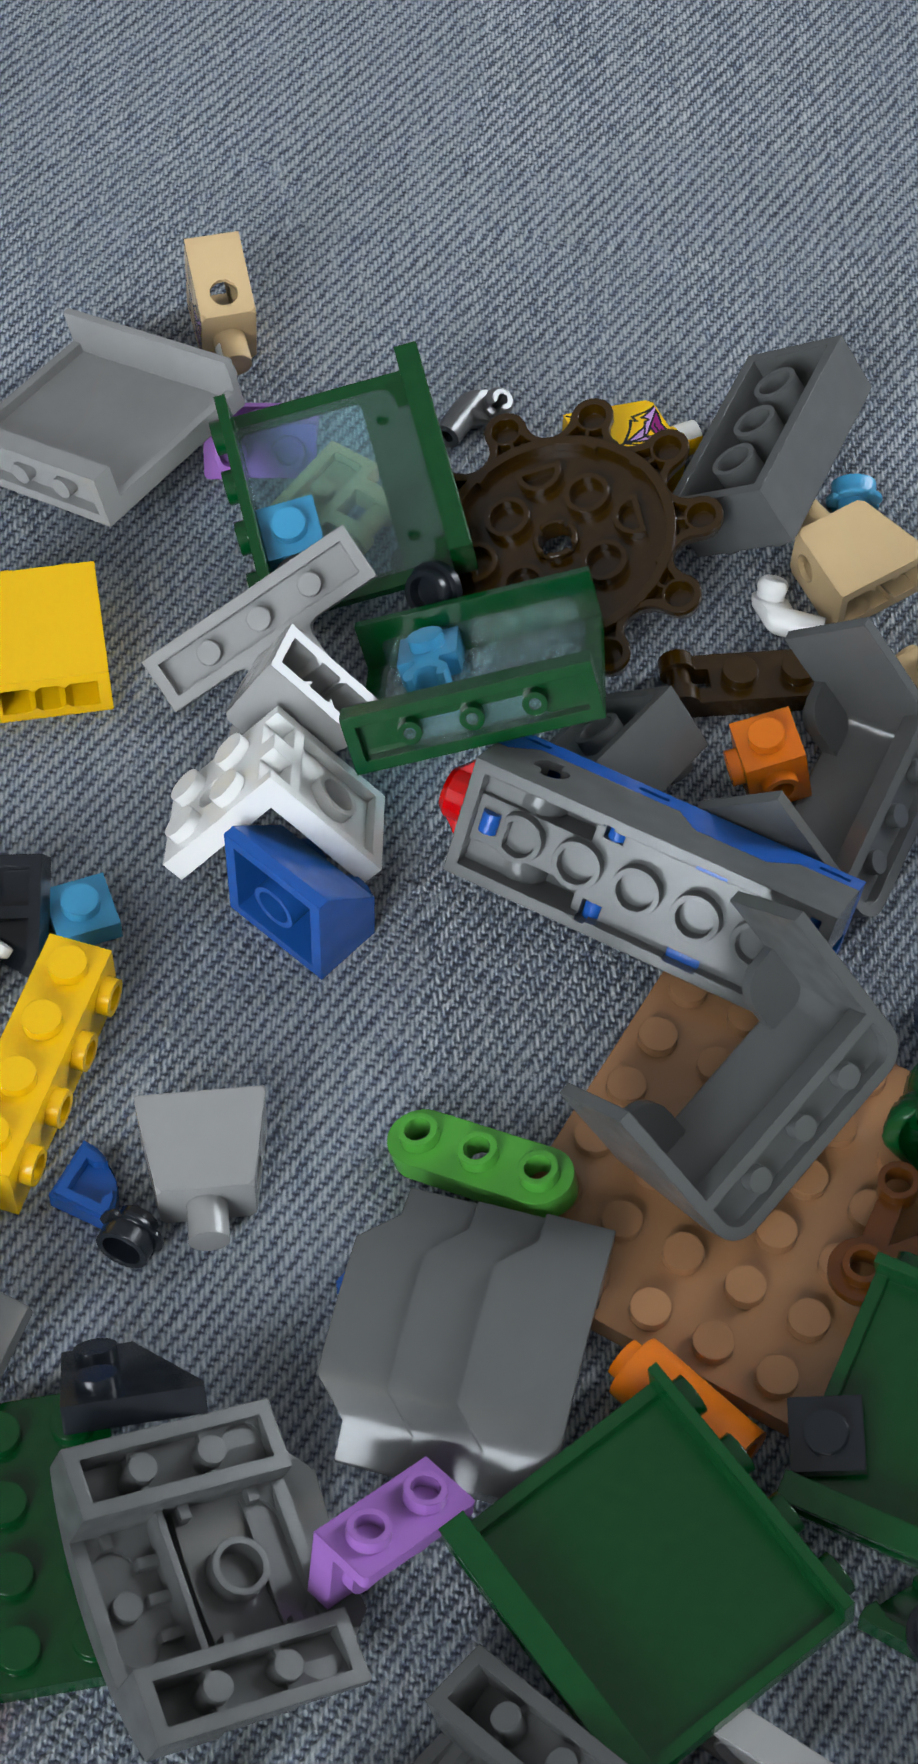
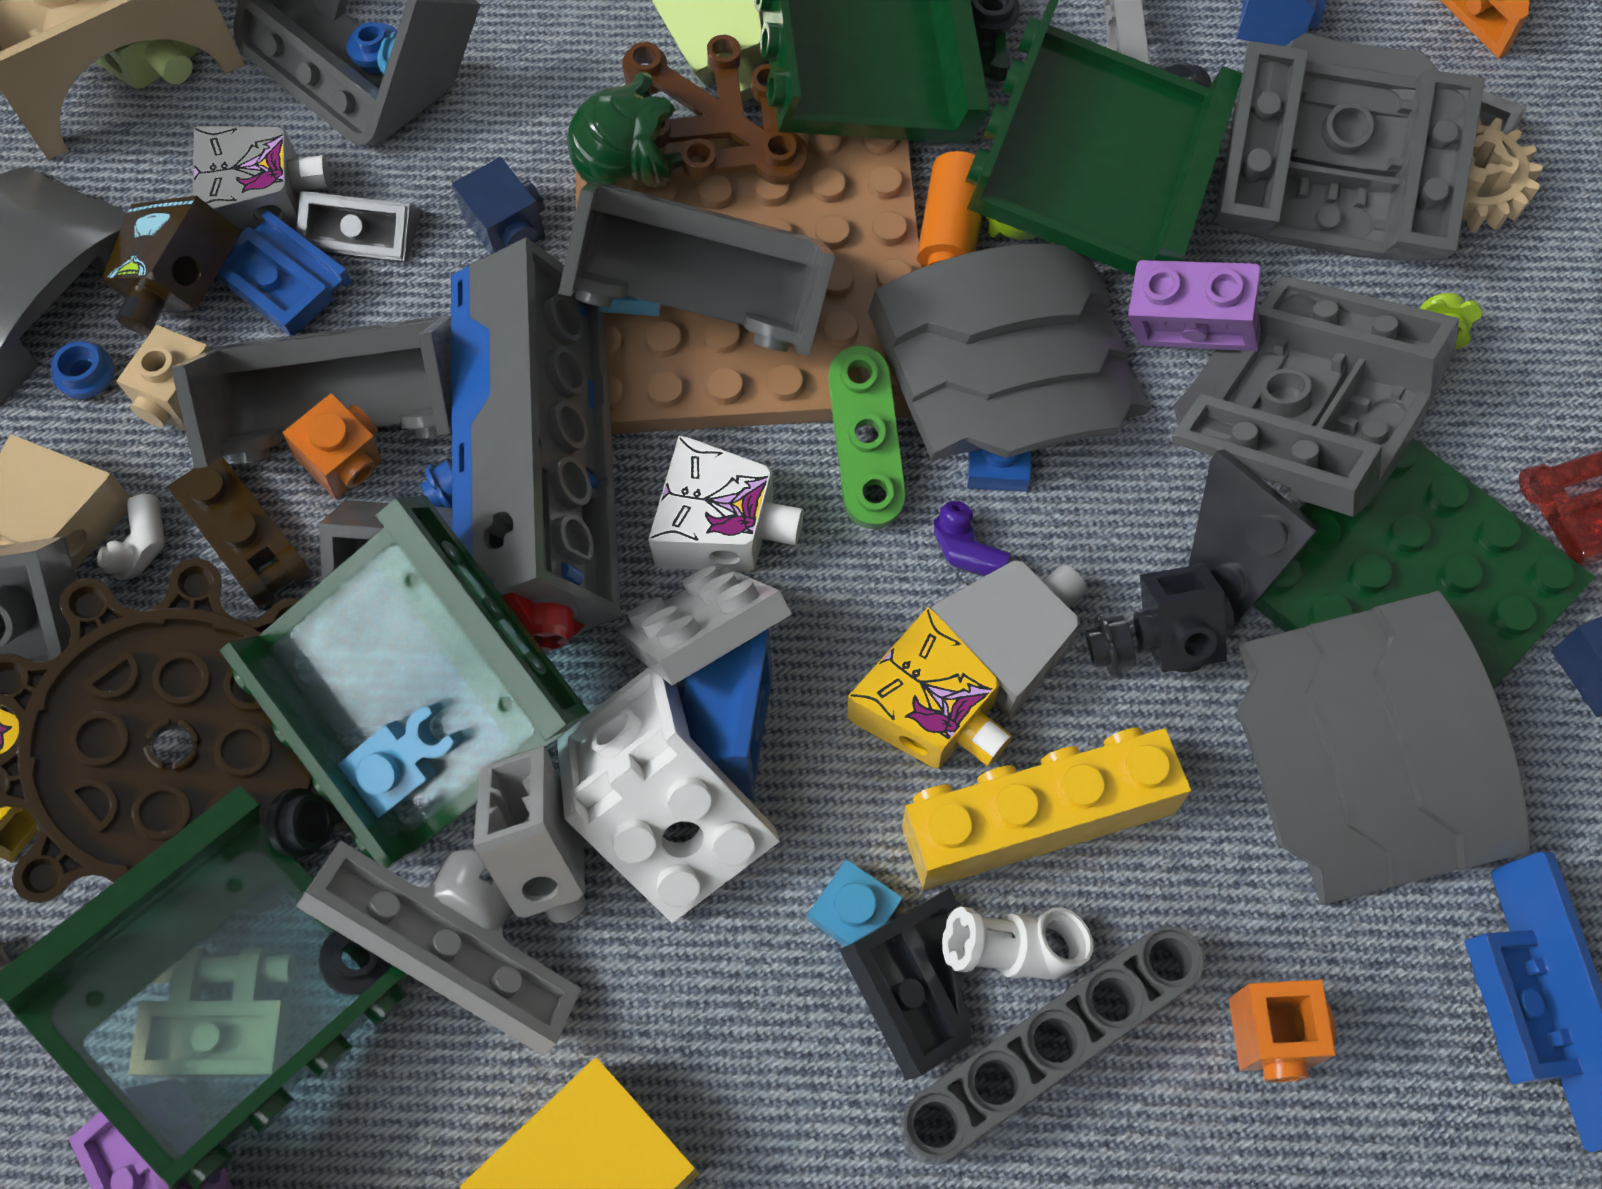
camera: 120 degrees left, 10 degrees up
(86, 1186) = (1092, 710): blue tile -> none
(93, 1287) = (1183, 618): none -> black brick
(192, 1046) = (930, 697): none -> yellow torso
(289, 528) = (294, 1008): dark azure plate -> none
(316, 1186) = (960, 542): none -> dark purple arm
(379, 896) = (701, 622): none -> light grey plate
(499, 1007) = (717, 511): none -> white torso
(827, 1435) = (922, 107): black plate -> none

